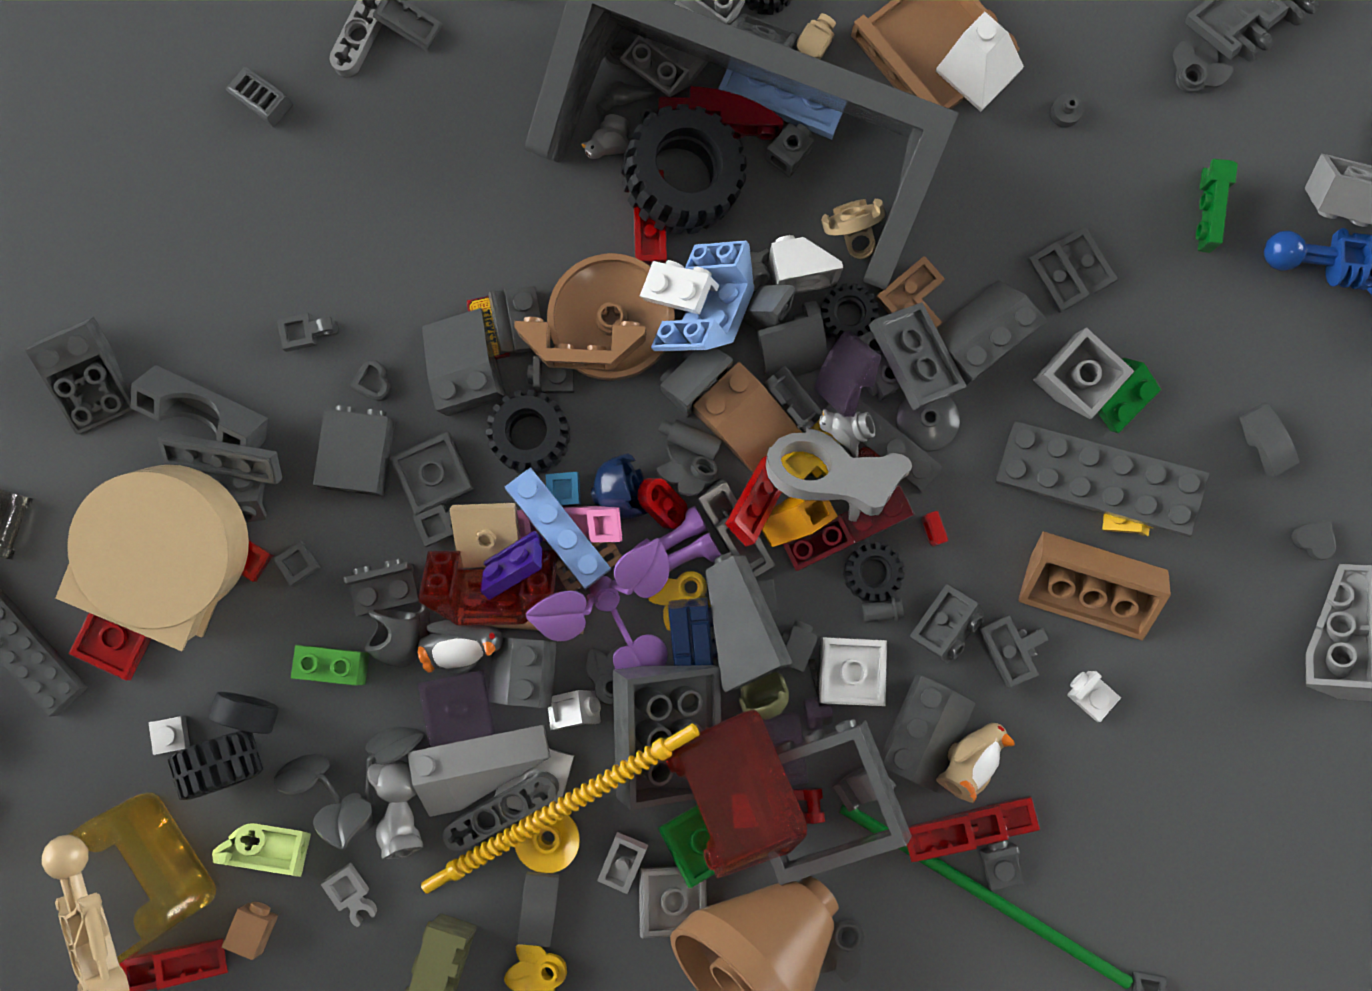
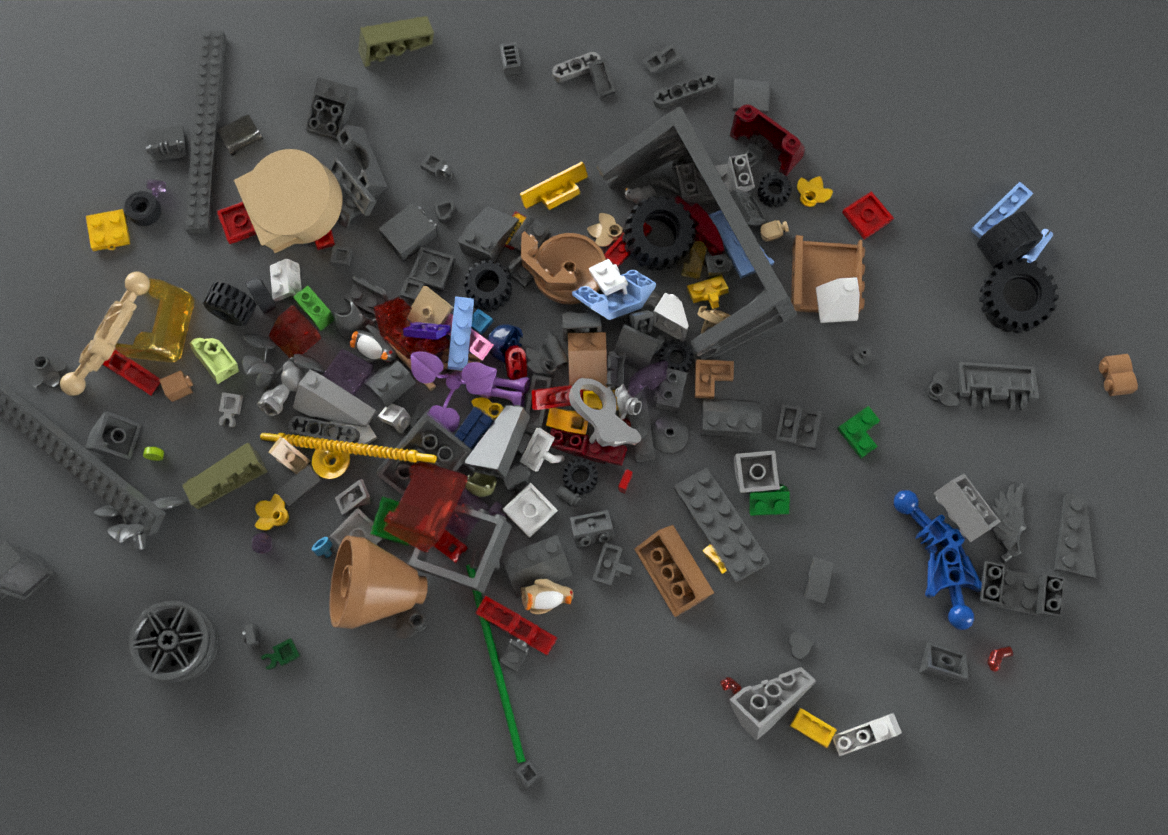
camera: 40 degrees right, 10 degrees down
(74, 204) = (394, 38): none -> olive wedge
(169, 735) = (223, 277): white plate -> none
(254, 660) = (285, 279): none -> white bracket
(335, 721) = (293, 332): none -> clear red slope
(489, 885) = (289, 456): none -> tan slope
(492, 225) = (556, 189): none -> yellow bracket
(602, 228) = (604, 229): none -> tan plate
(643, 957) = (323, 547): none -> dark azure tile
(760, 167) = (697, 256): none -> clear yellow leg
(795, 589) = (538, 450): none -> white plate
(809, 190) = (708, 290): none -> yellow hinge
(917, 355) = (686, 397): dark grey plate -> none
(1093, 695) = (628, 618): white bracket -> none
(1142, 212) = (855, 431): none -> green plate
(1215, 184) = (902, 445): green plate -> none
(1287, 659) = (730, 683): none -> clear red arm

